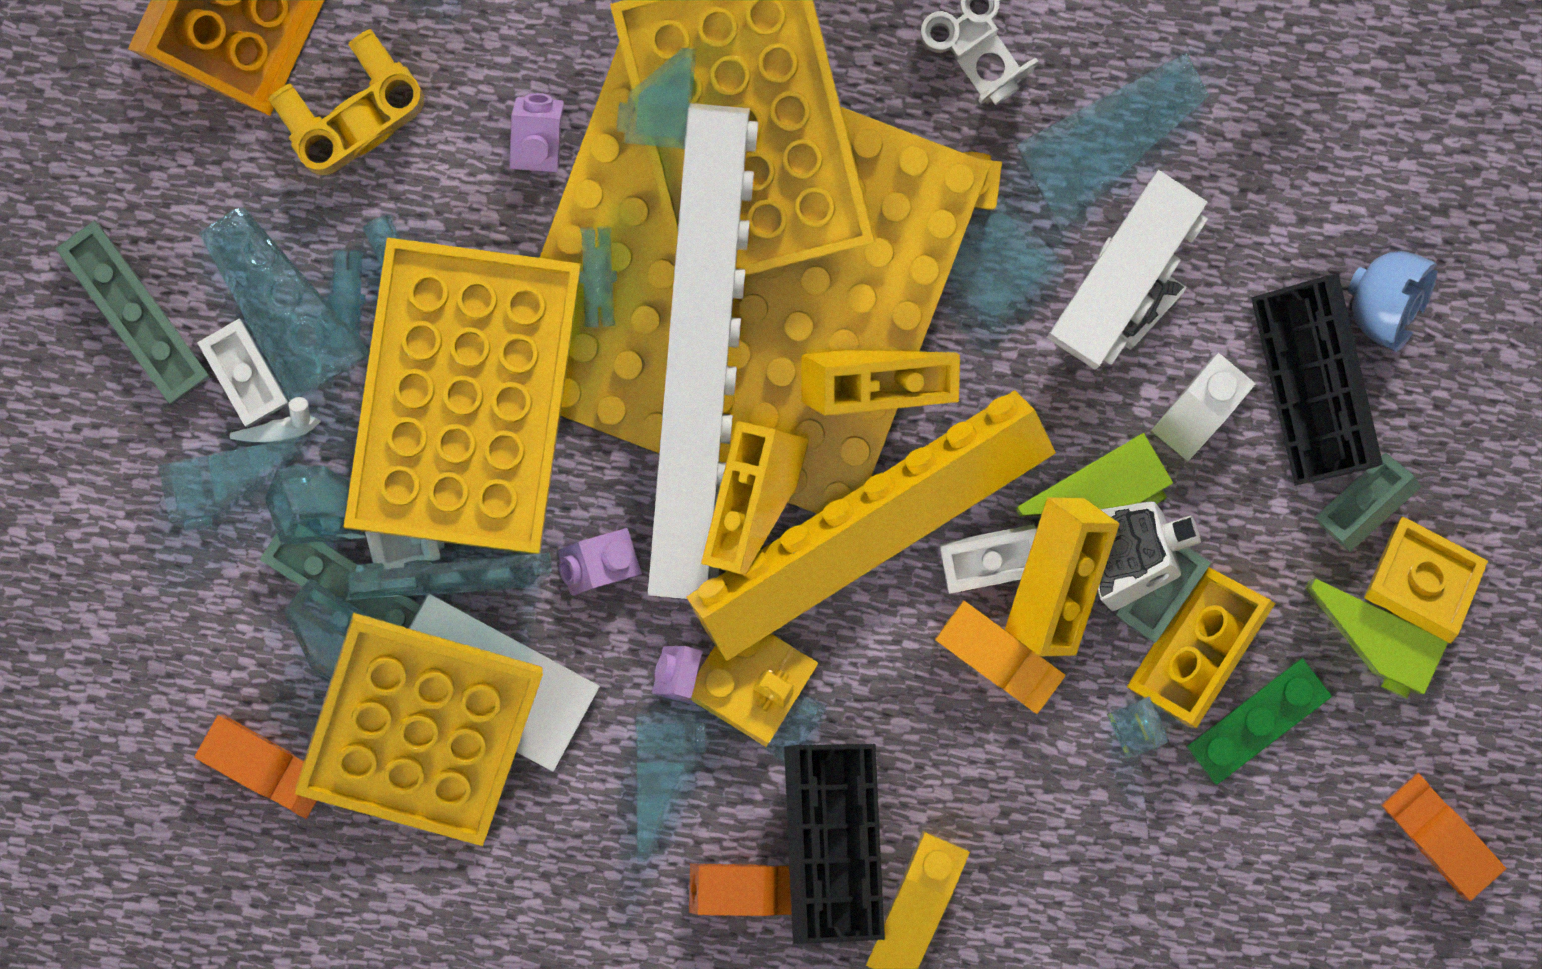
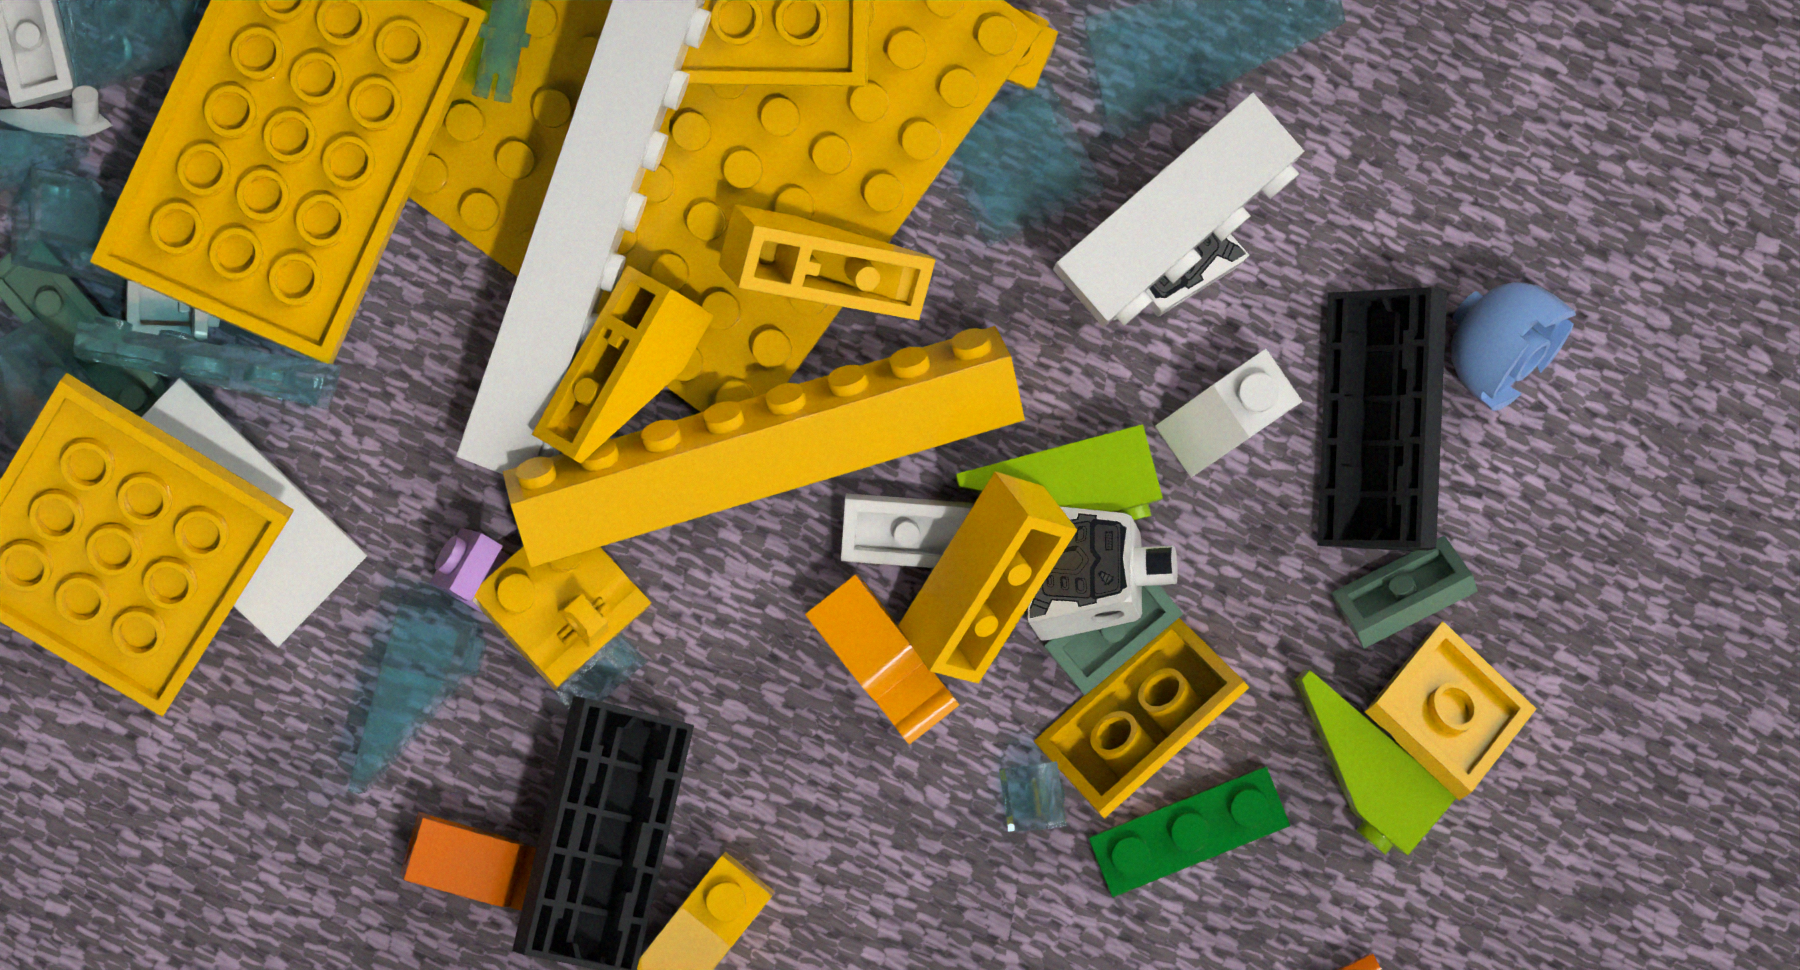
camera: 15 degrees right, 0 degrees up
(598, 561) = (410, 398): lavender bracket -> none

